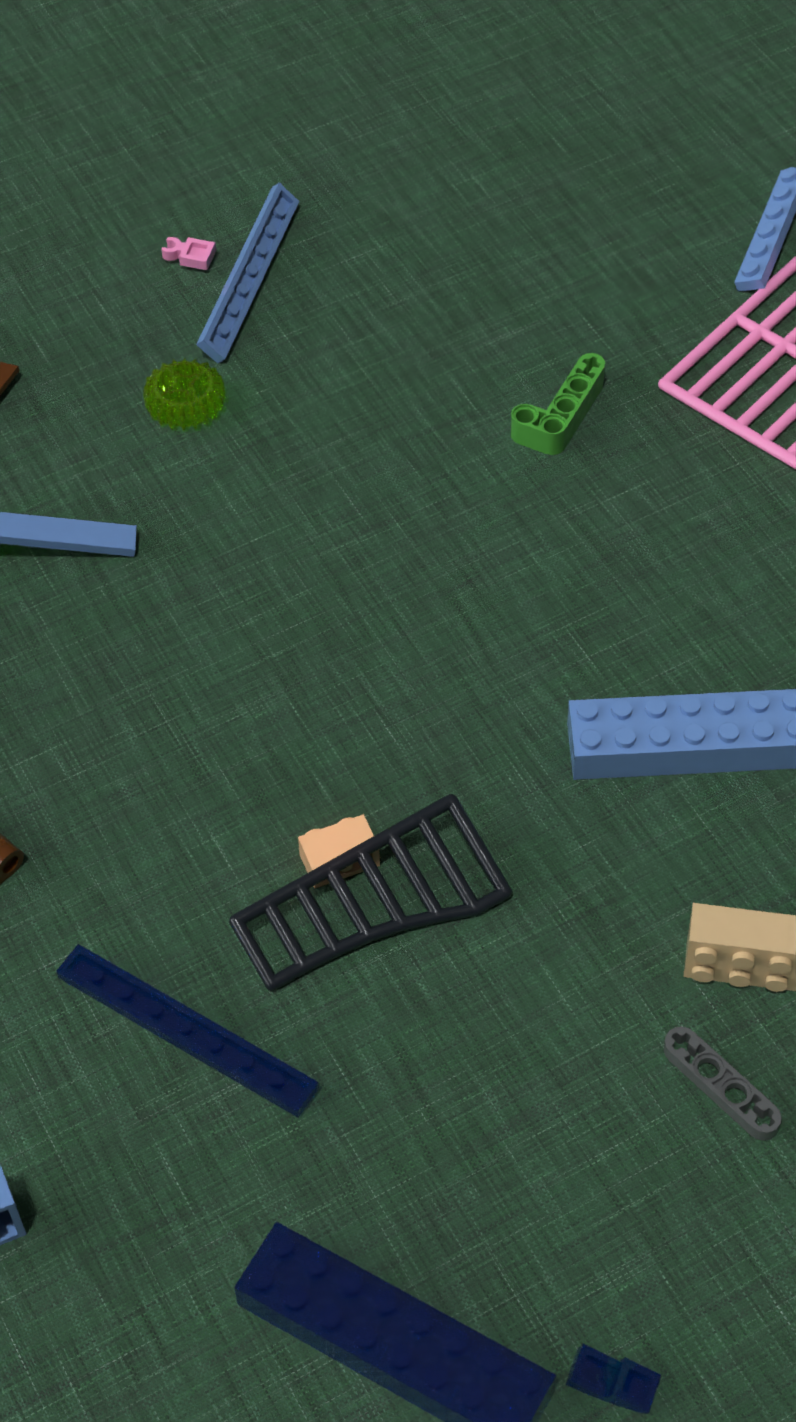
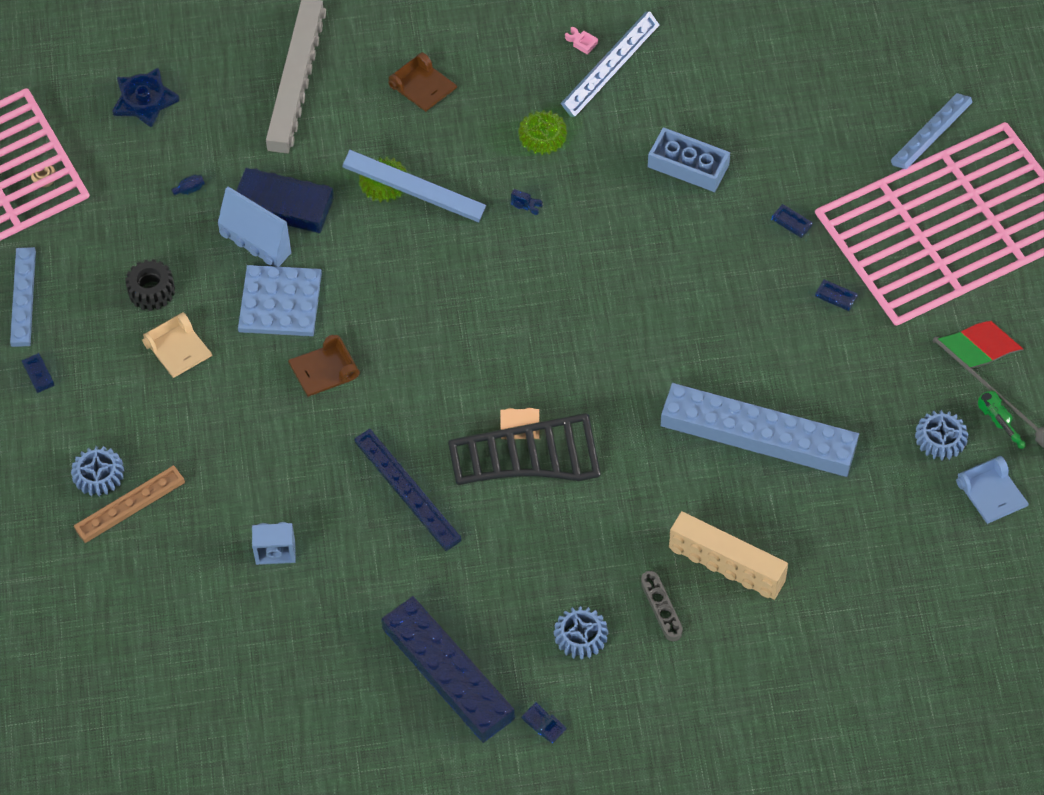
camera: 20 degrees right, 5 degrees up
(195, 501) = (524, 201): none -> clear blue plate
(433, 365) = (688, 159): none -> medium blue brick
(553, 428) = (773, 197): bright green beam -> none
(591, 1157) = (593, 625): none -> medium blue gear
(631, 407) = (792, 221): none -> clear blue plate
(754, 492) = (836, 295): none -> clear blue plate

